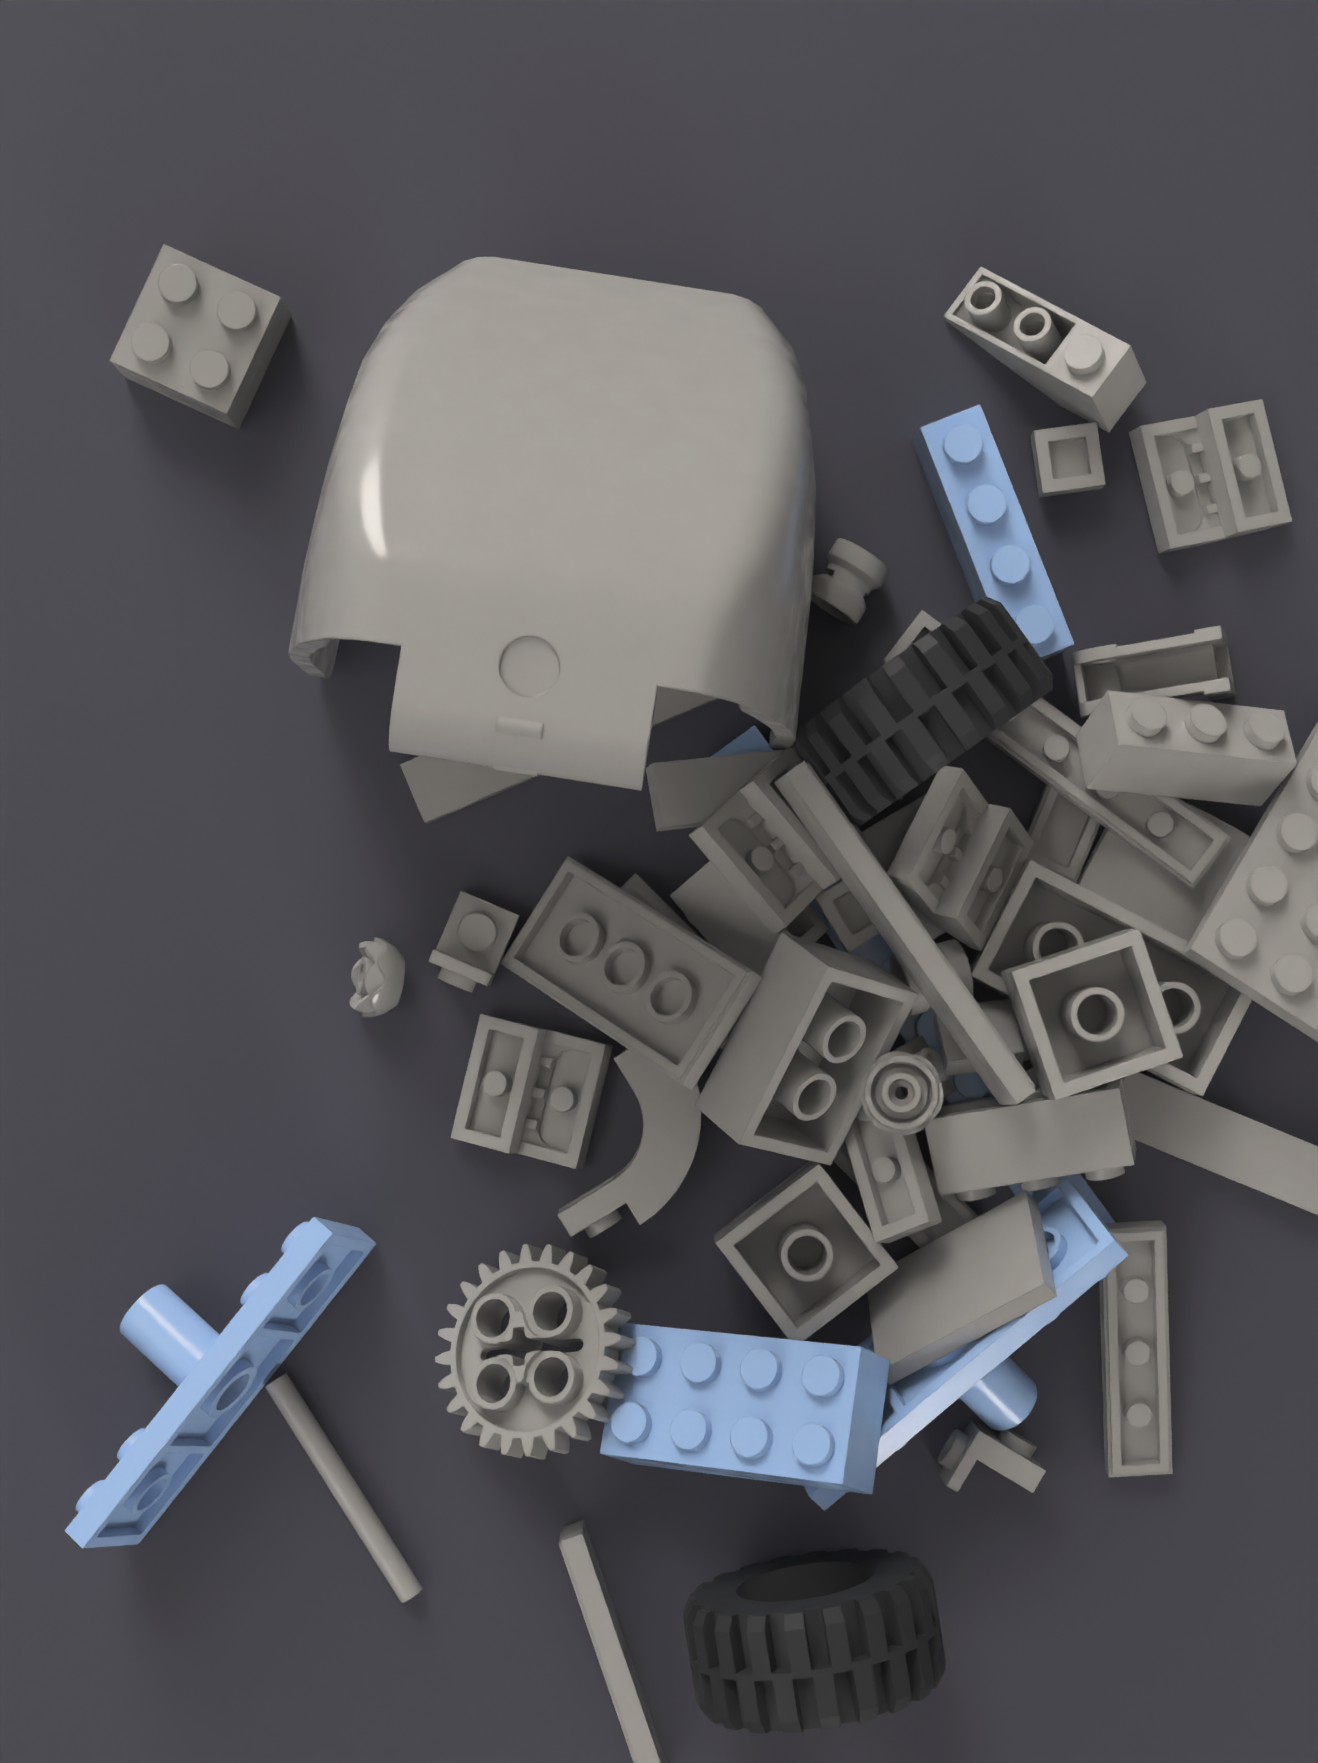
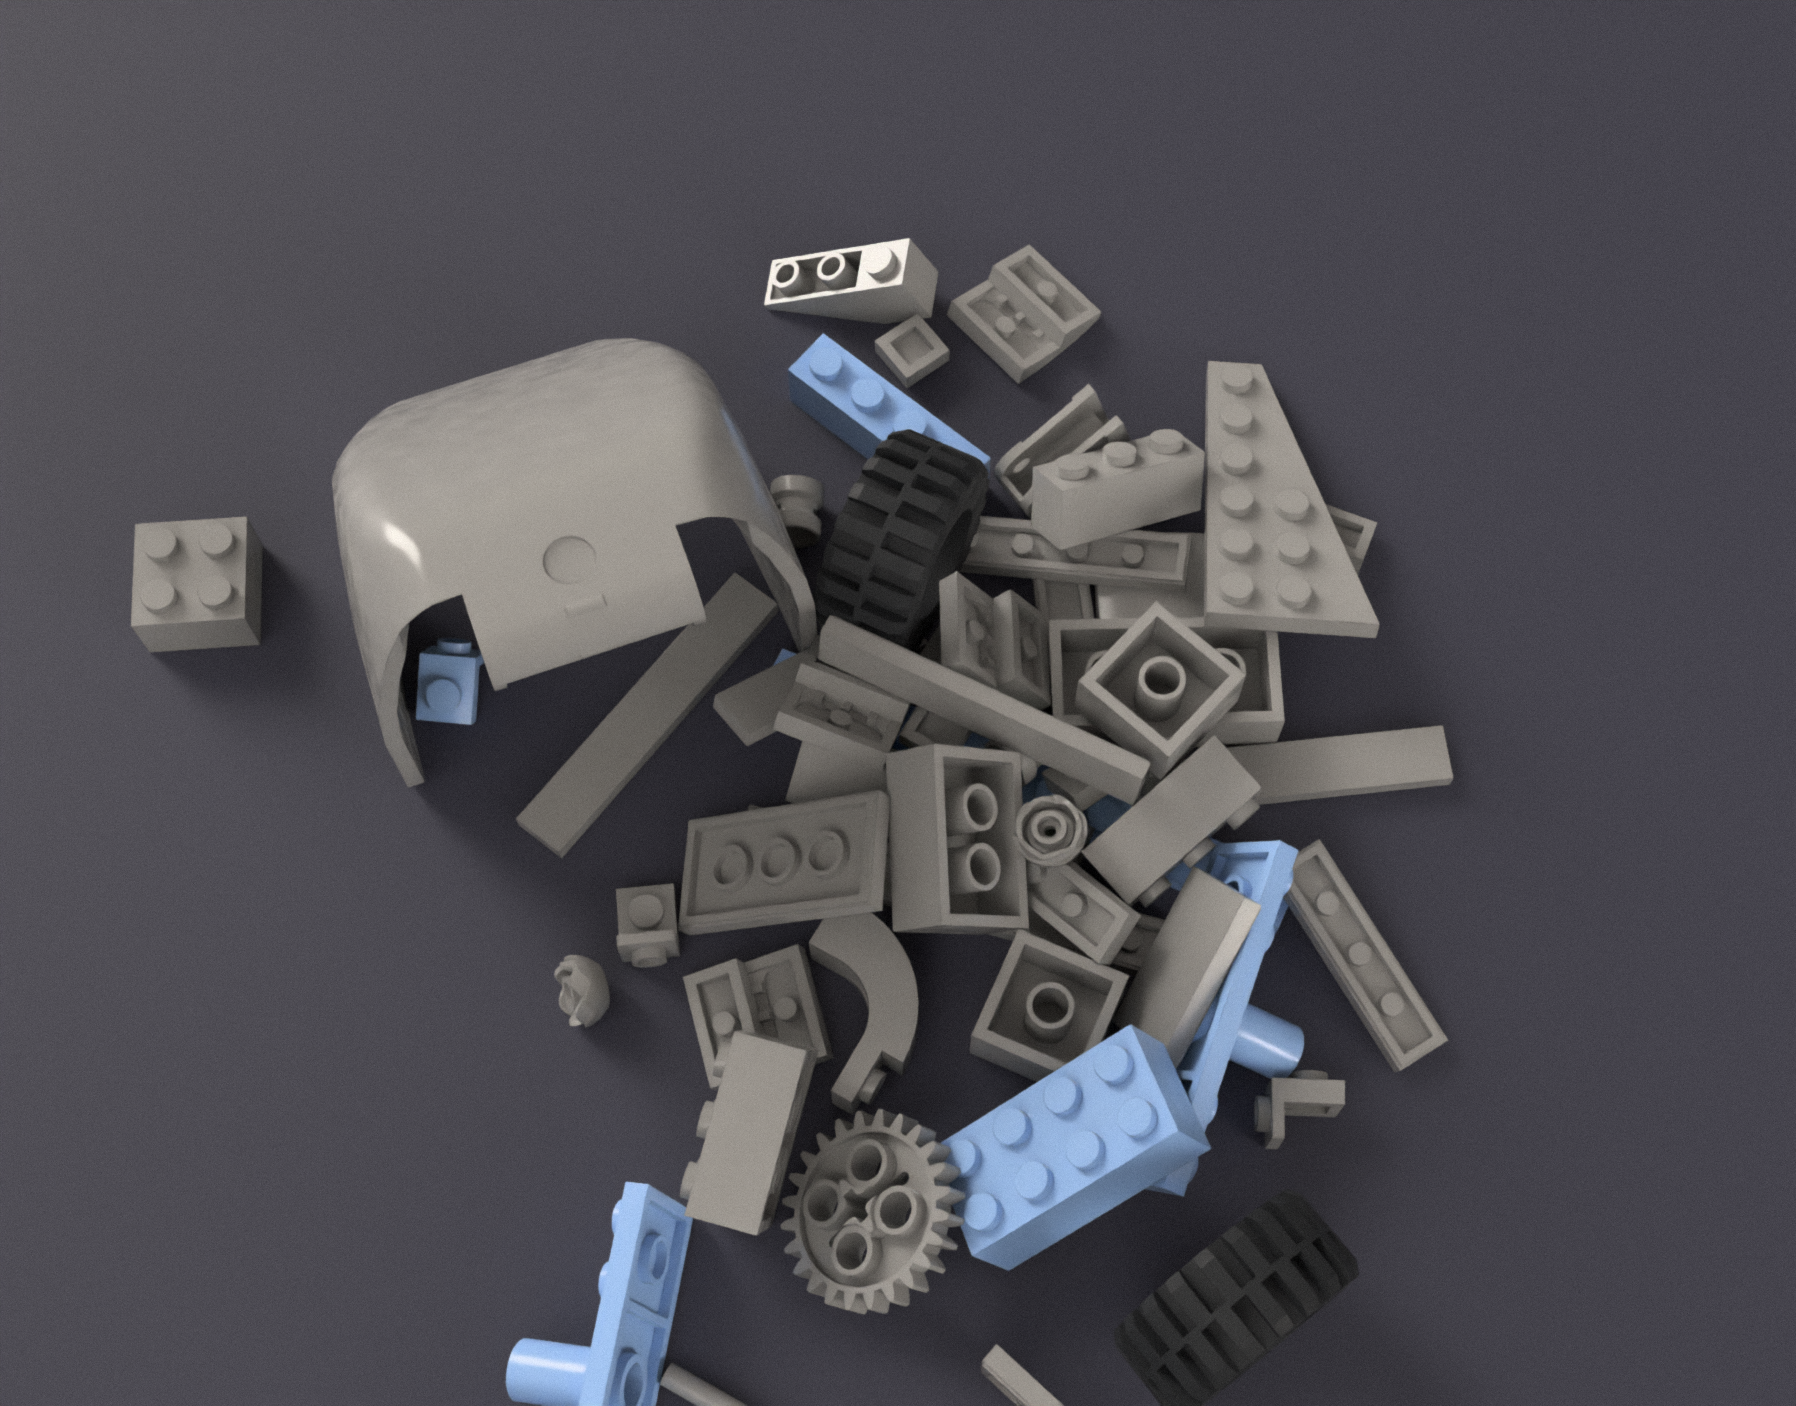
camera: 20 degrees left, 20 degrees down
(457, 1219) = (748, 1131): none -> light grey brick

